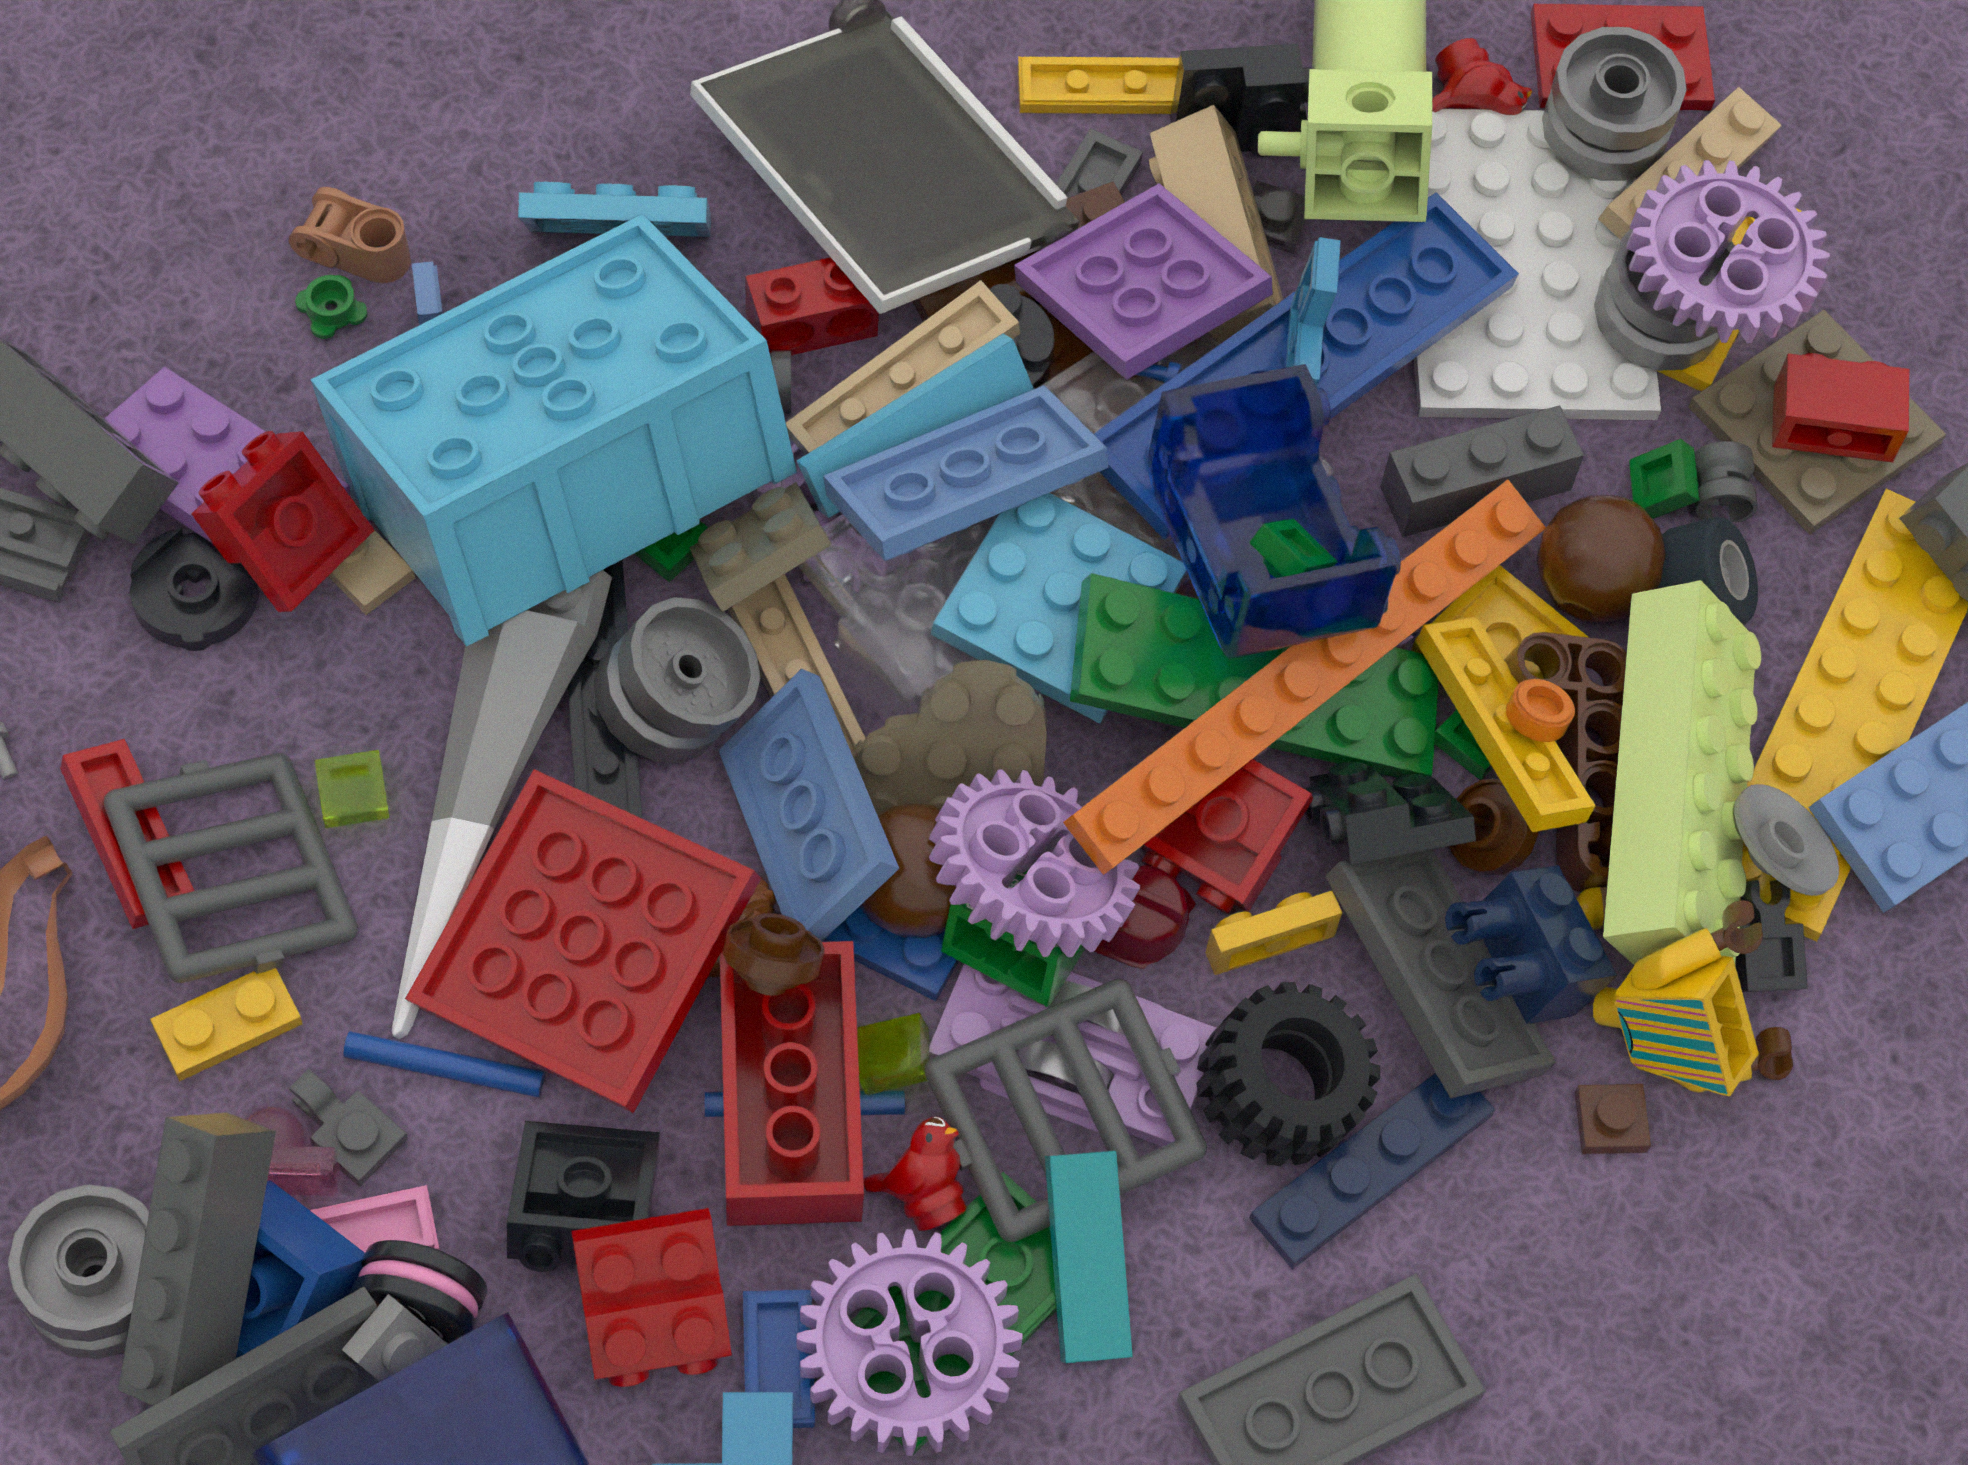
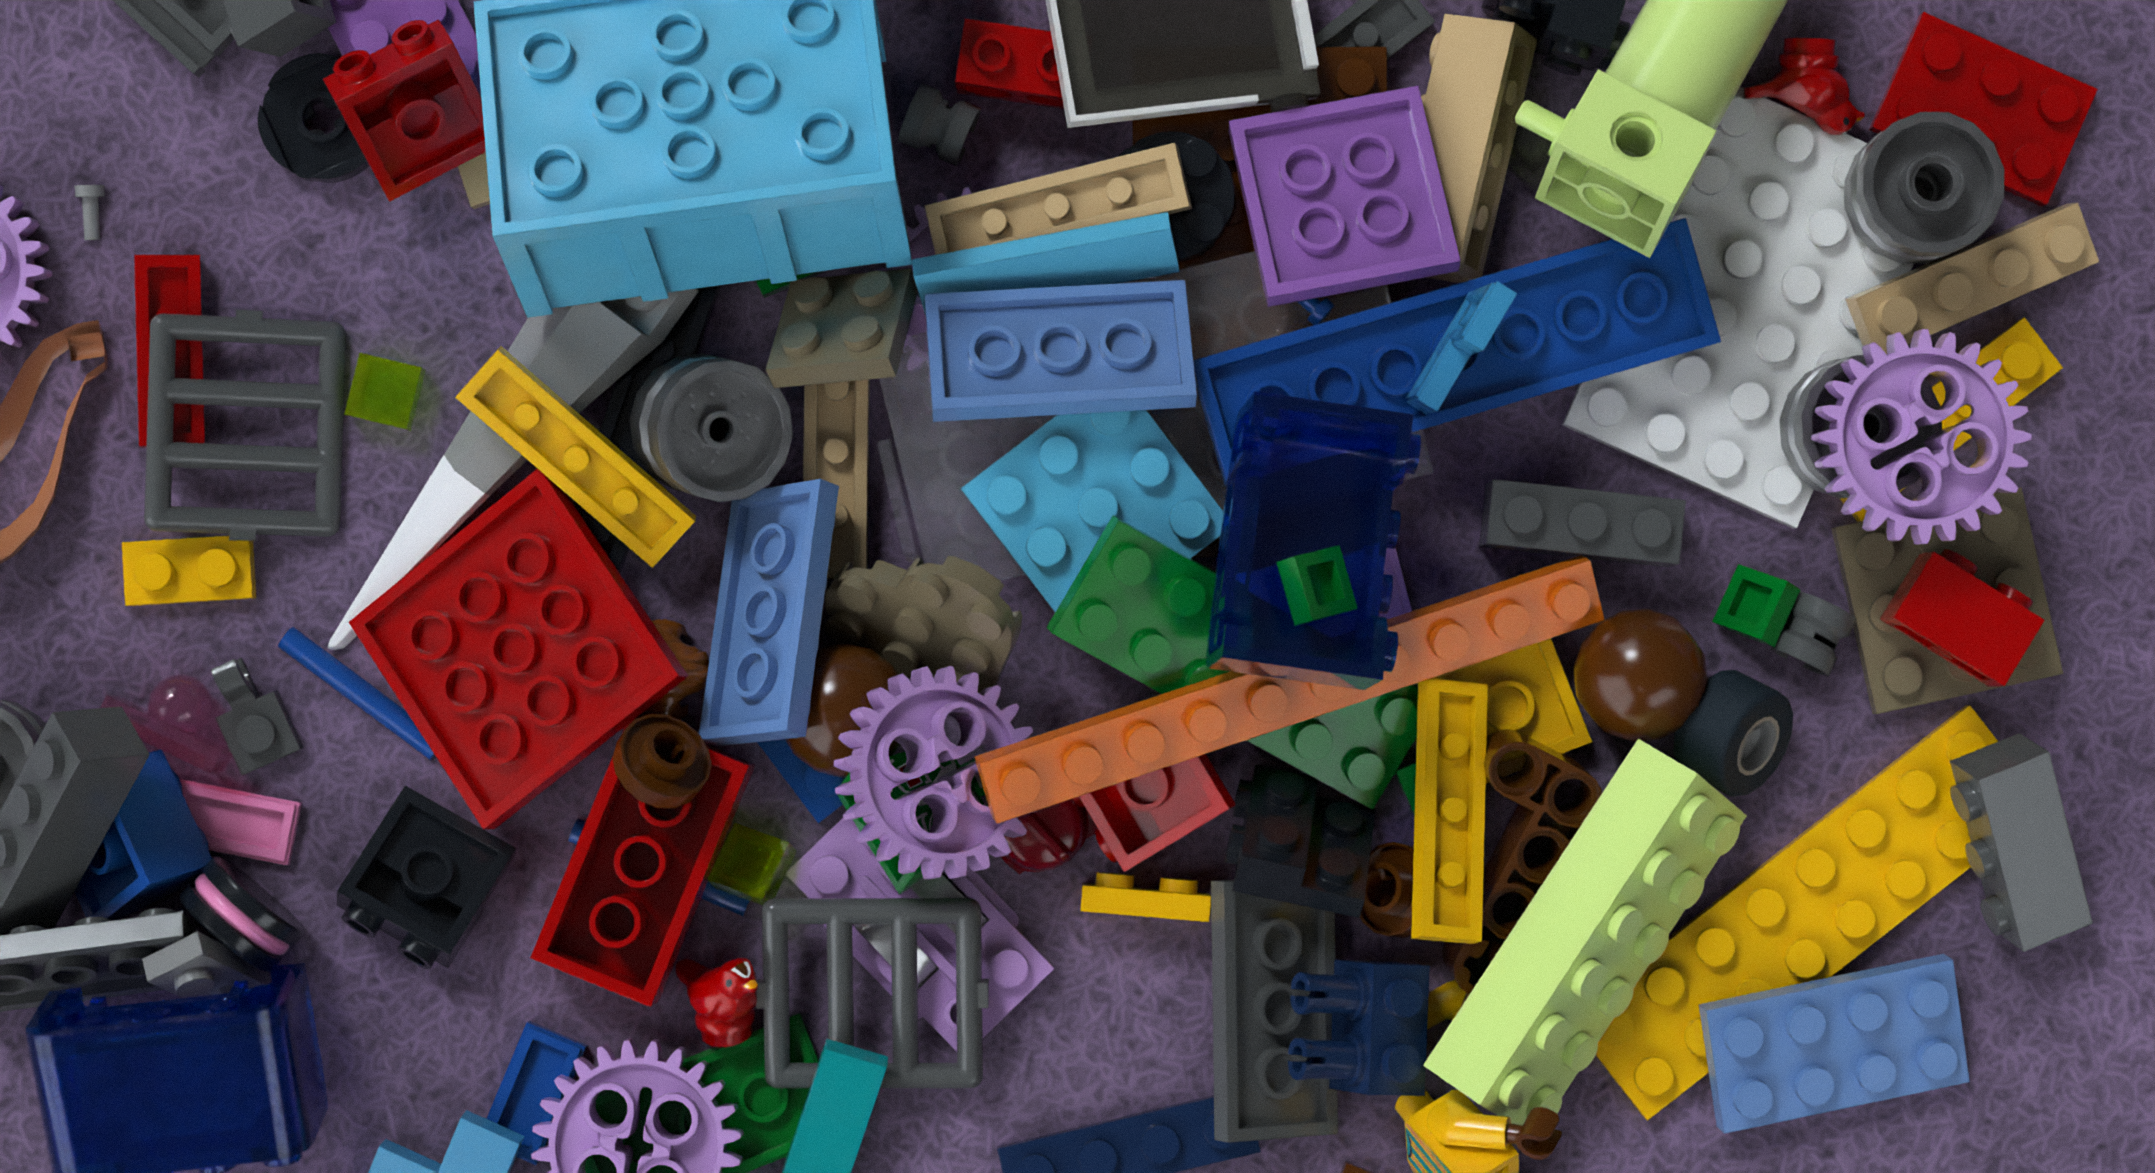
camera: 30 degrees right, 25 degrees up
(565, 746) = (576, 456): none -> yellow plate
(652, 1296) = (437, 1006): red plate -> none
(1321, 1040) = (1116, 1089): black tyre -> none
(1540, 710) = (1484, 820): orange tile -> none
(1781, 957) = (1593, 1114): black plate -> none
(1786, 840) = (1651, 1037): light grey dish -> none

